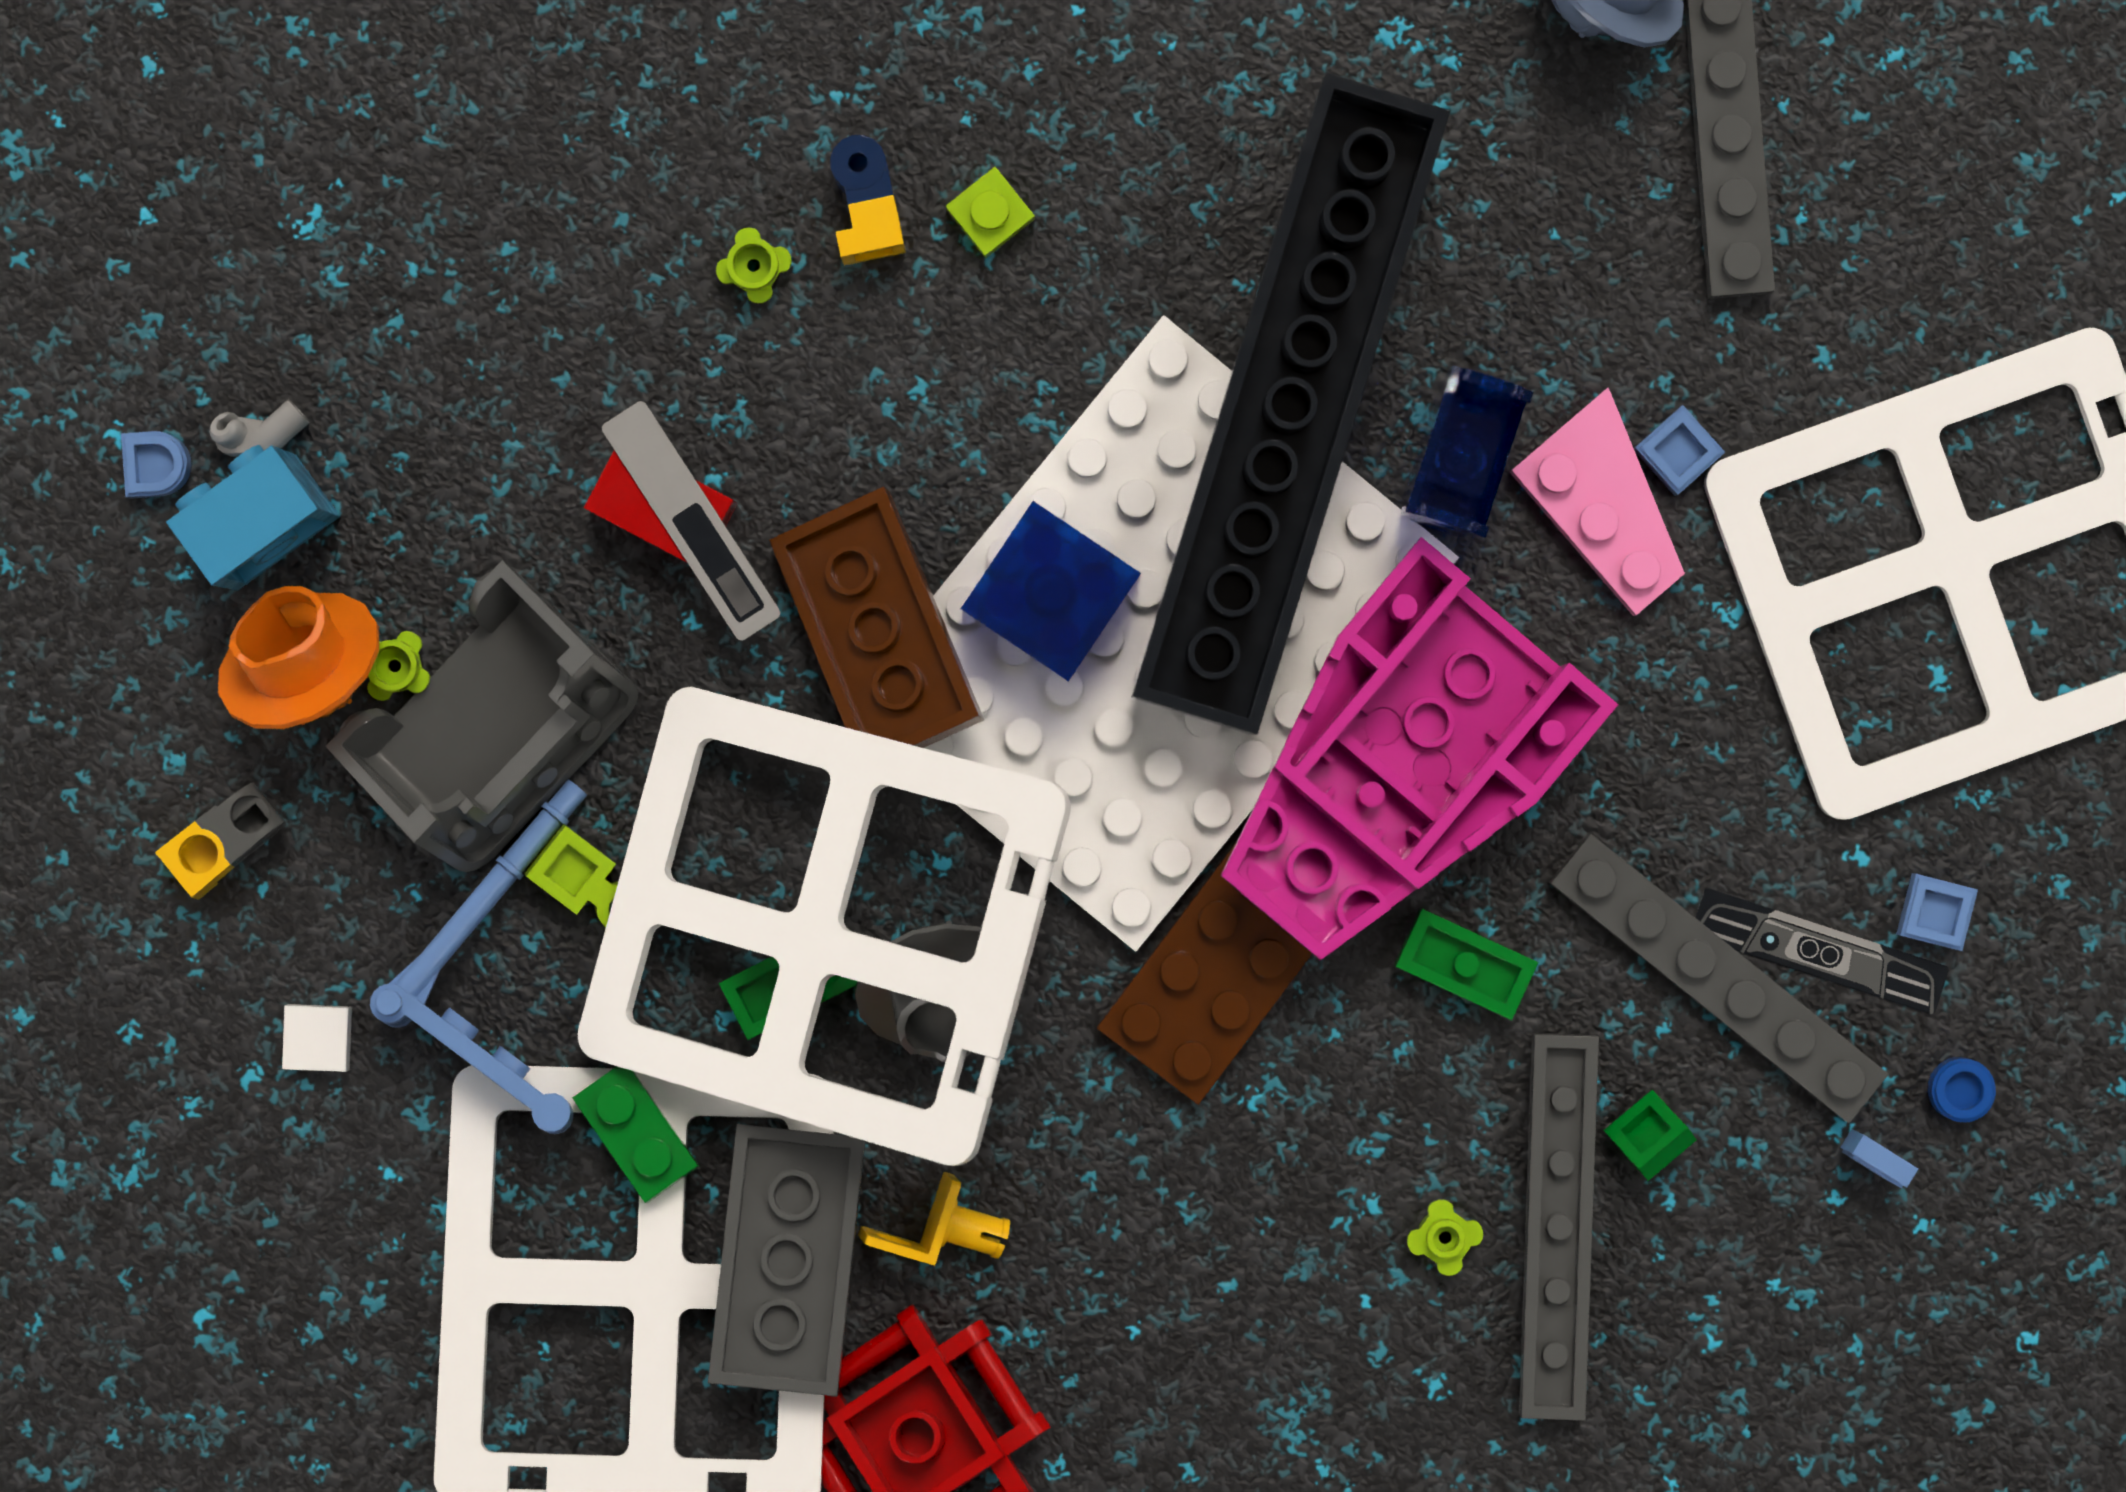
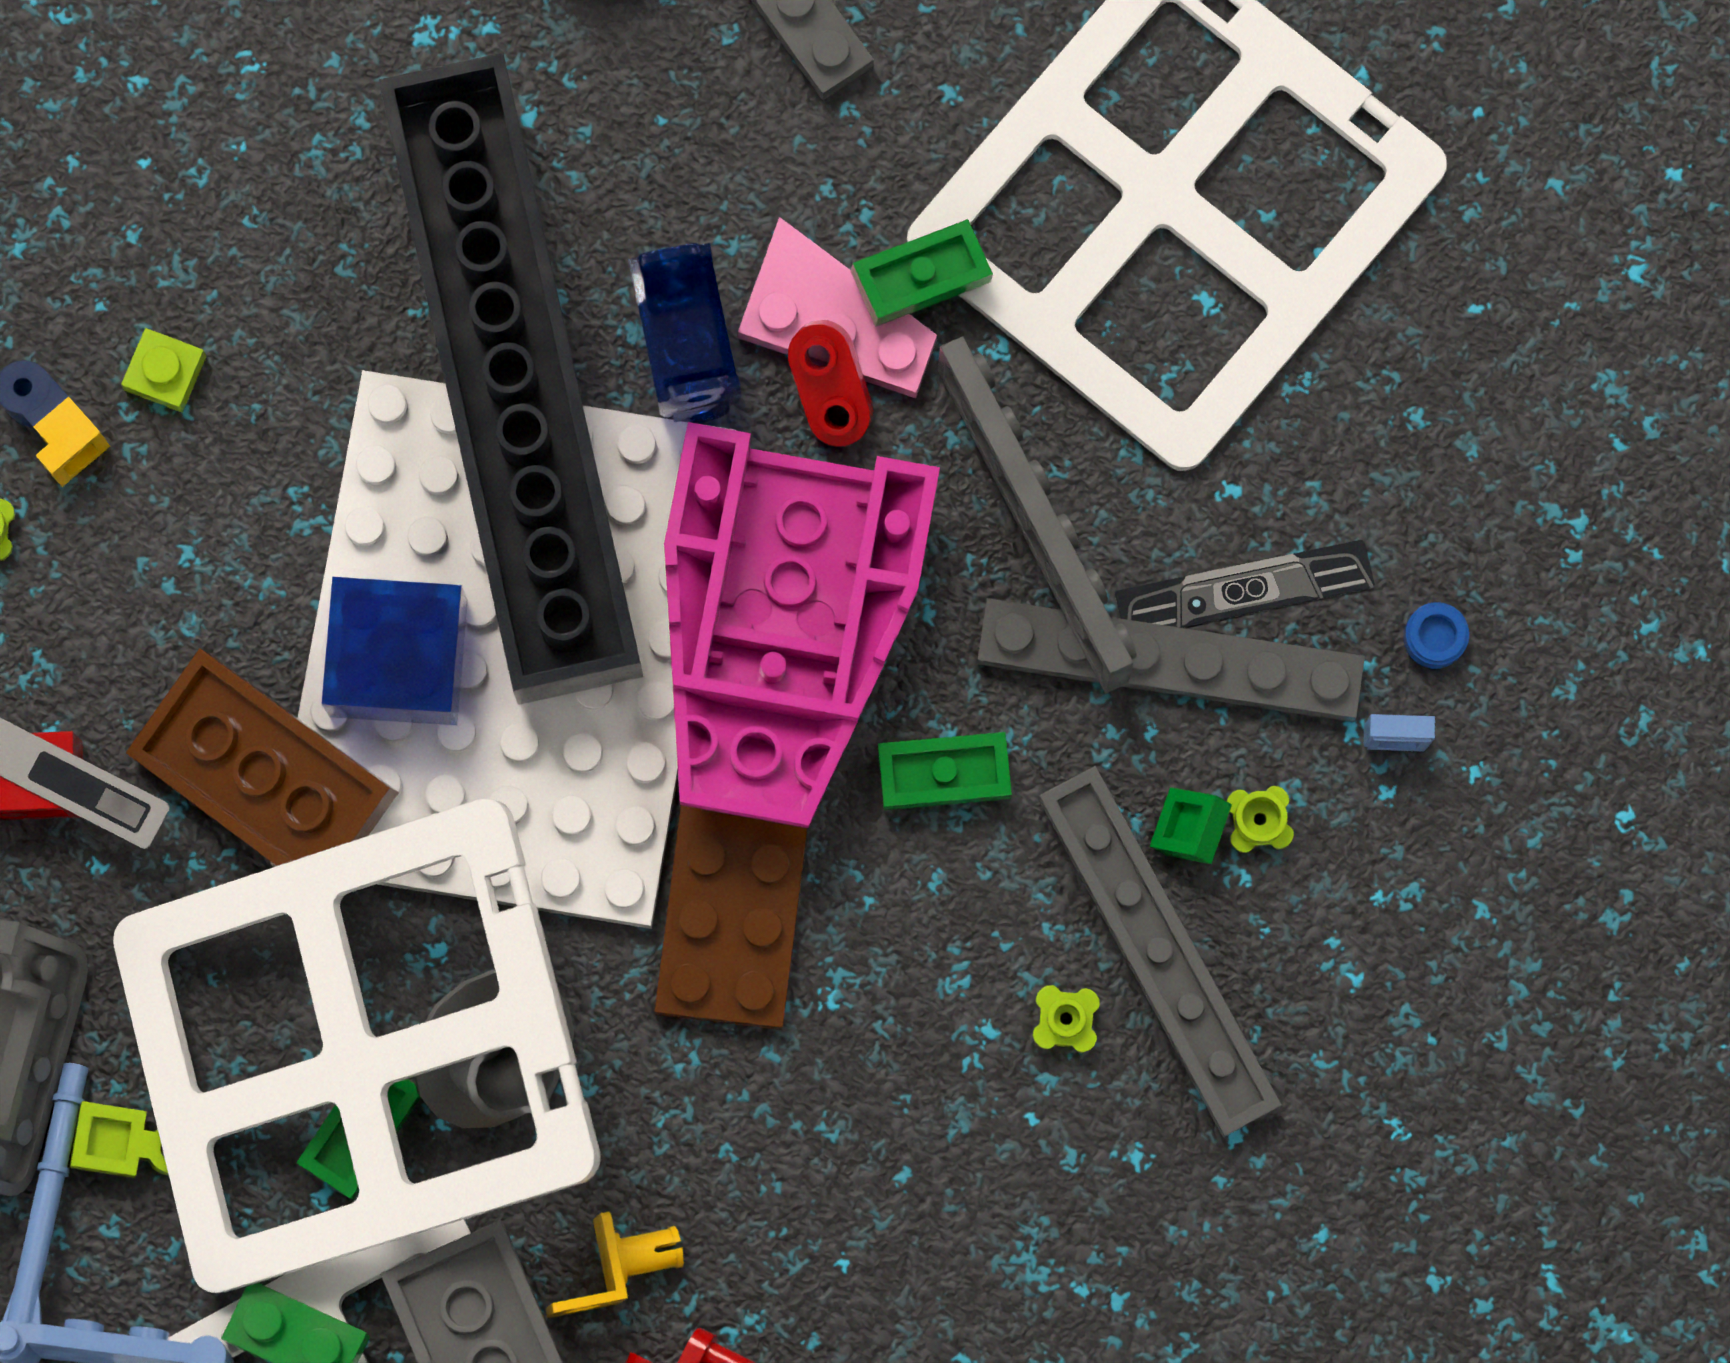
camera: 25 degrees left, 10 degrees down
(1565, 567) = (831, 384): none -> red plate
(1678, 450) = (869, 231): medium blue tile -> none
(1679, 763) = (1047, 535): none -> dark grey plate
(1704, 513) = (921, 272): none -> green plate
(1719, 1178) = (1273, 806): none -> lime plate
(1937, 912) = (1323, 497): medium blue tile -> none

